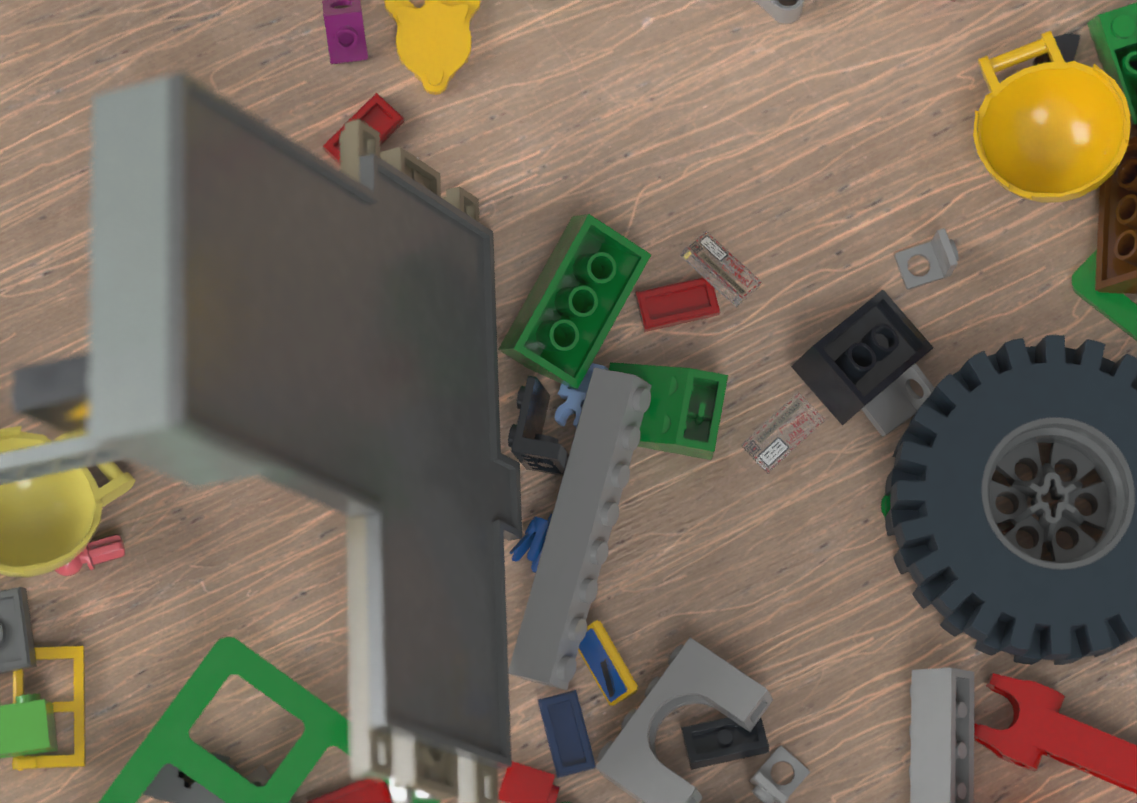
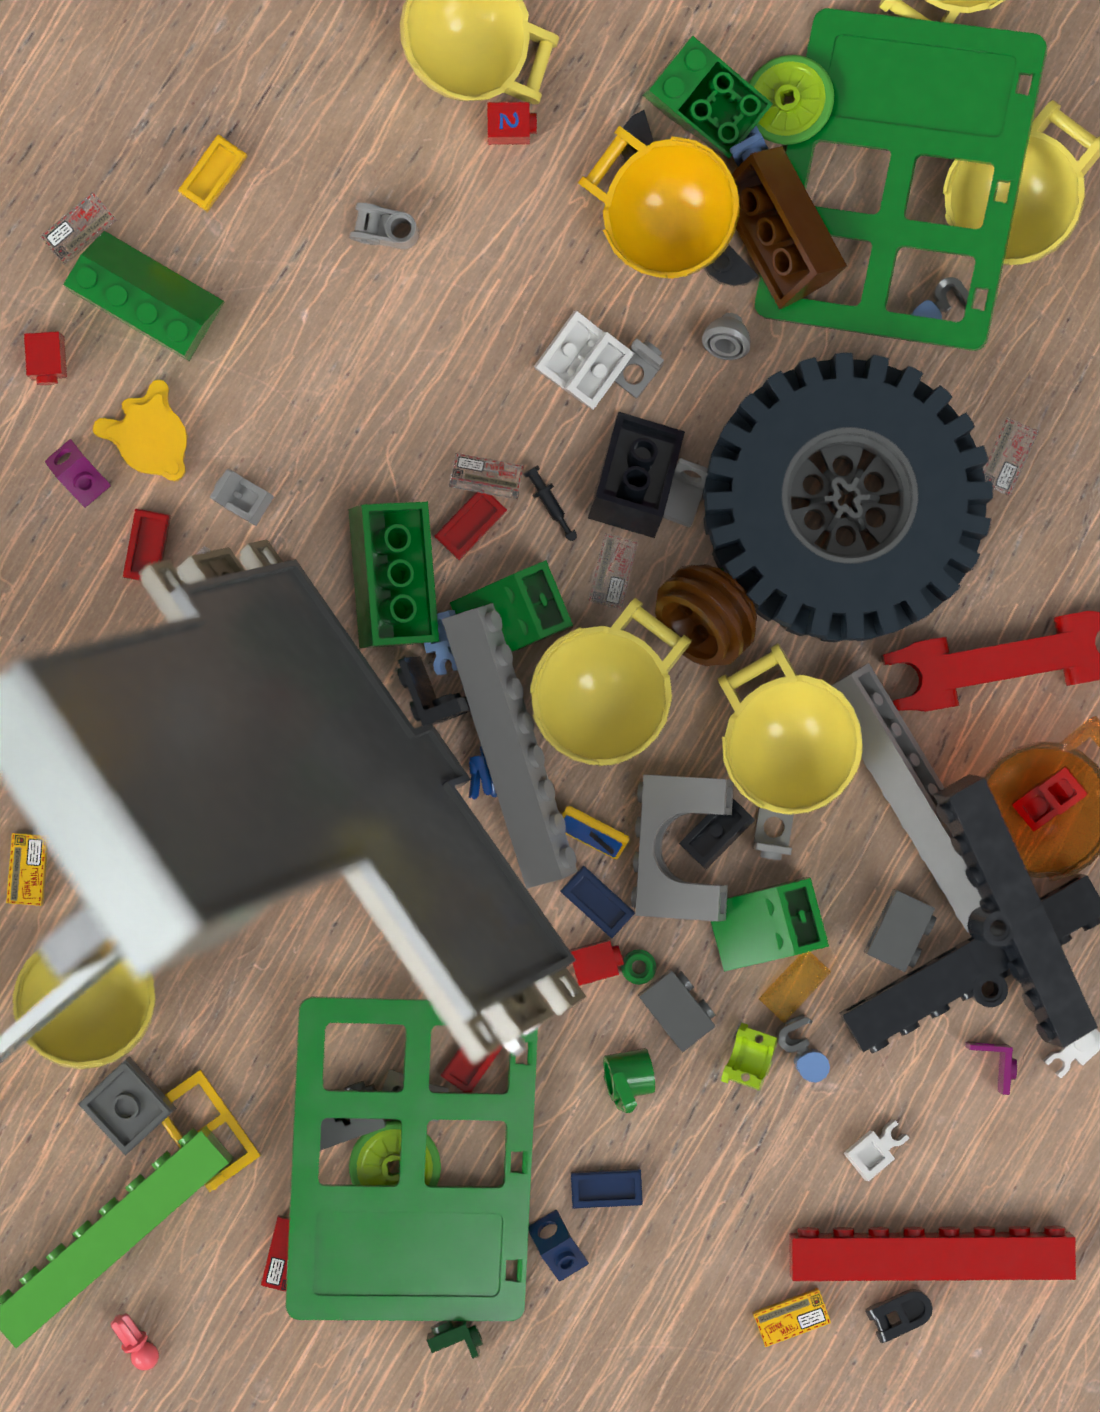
camera: 30 degrees left, 10 degrees up
(60, 339) = (27, 869): none -> tile
(95, 553) = (165, 993): coral axle -> none
(480, 142) = (241, 497): none -> light grey bracket
(705, 530) = (605, 690): none -> light yellow windscreen
(765, 329) = (549, 501): none -> black piece
(847, 522) = (709, 611): none -> reddish brown wheel
(853, 692) = (789, 739): none -> light yellow windscreen
(880, 222) = (583, 360): none -> white slope
(1028, 286) = (727, 337): none -> light grey brick
(1070, 224) = (731, 269): none -> black plate

